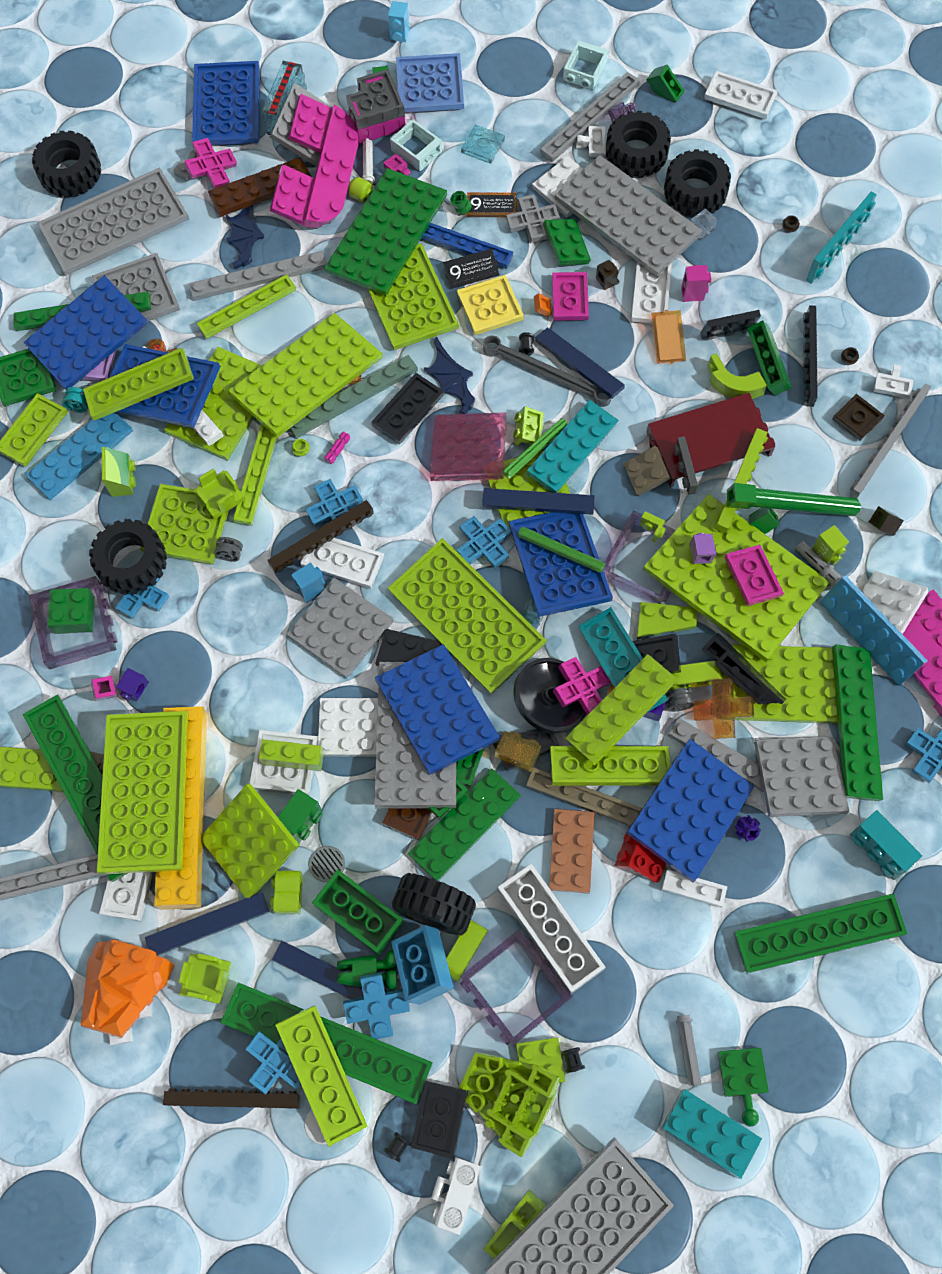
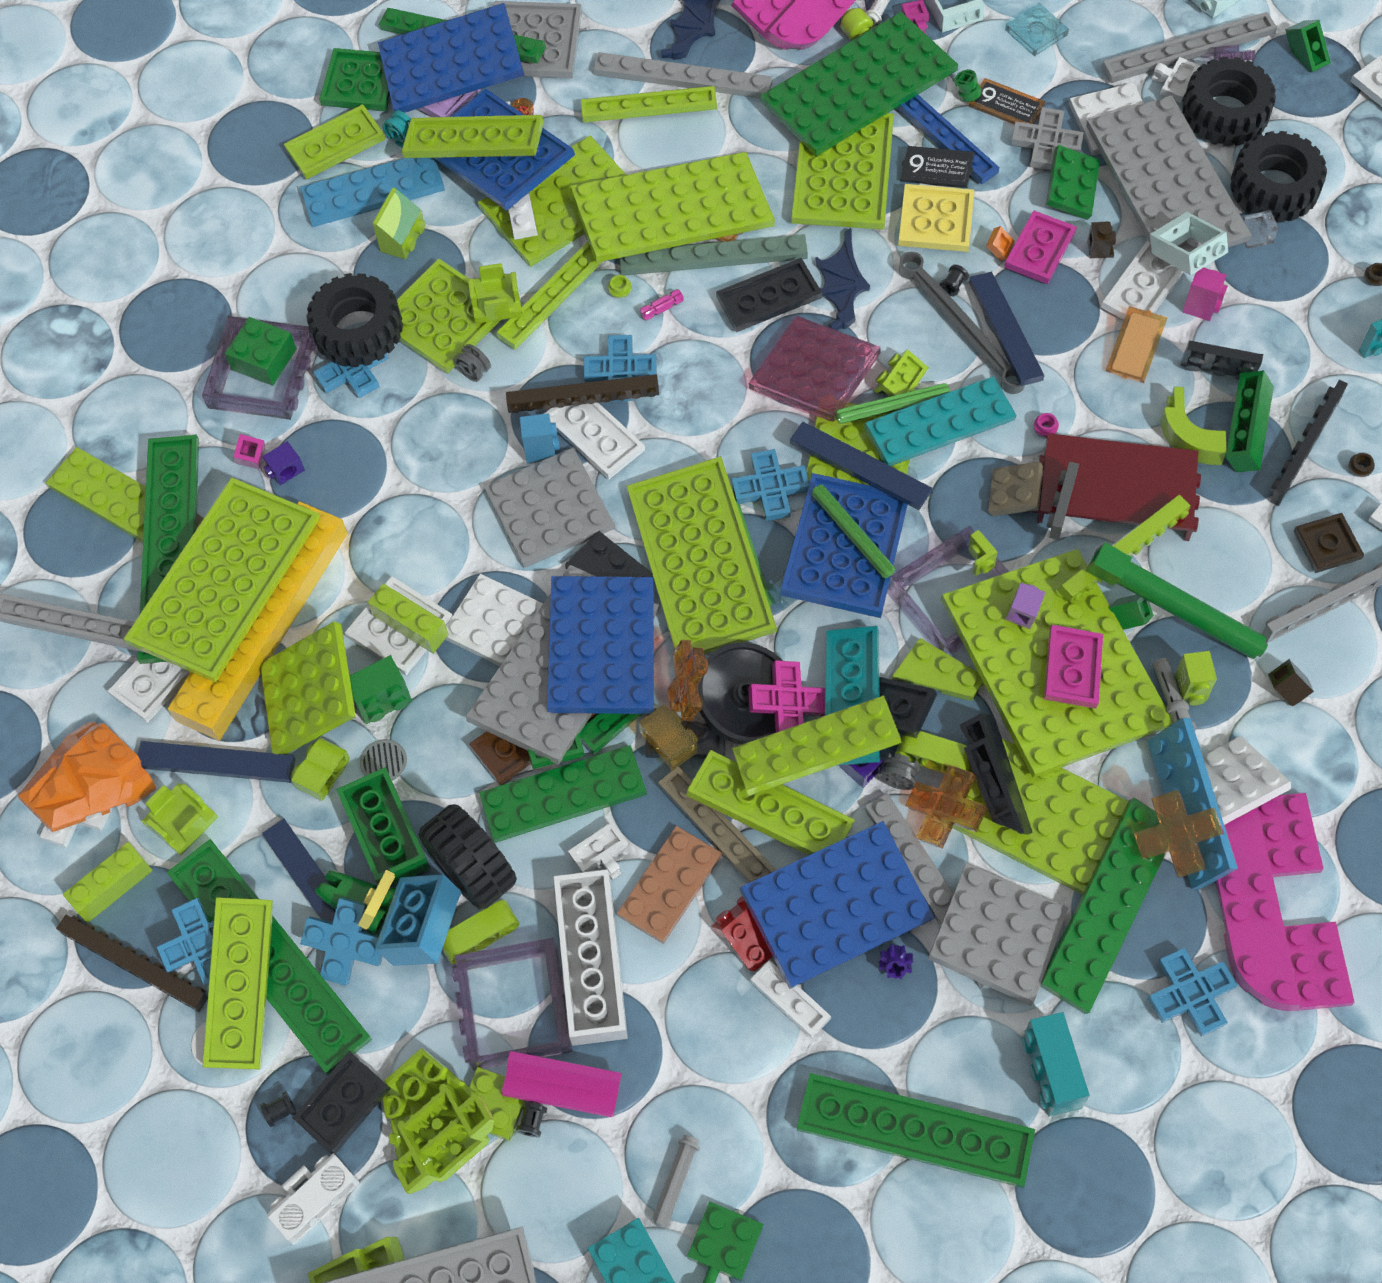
camera: 30 degrees right, 5 degrees down
(181, 1052) = (107, 882): none -> lime brick
(386, 966) = (374, 899): none -> light yellow plate
(510, 703) = (689, 669): none -> clear orange plate
(513, 851) = (599, 850): none -> white plate
(580, 1026) = (561, 1084): none -> dark pink panel
(640, 413) = (1046, 419): none -> dark pink plate
(676, 242) = (1165, 243): none -> light aqua window
(880, 655) = (1178, 833): none -> clear orange plate

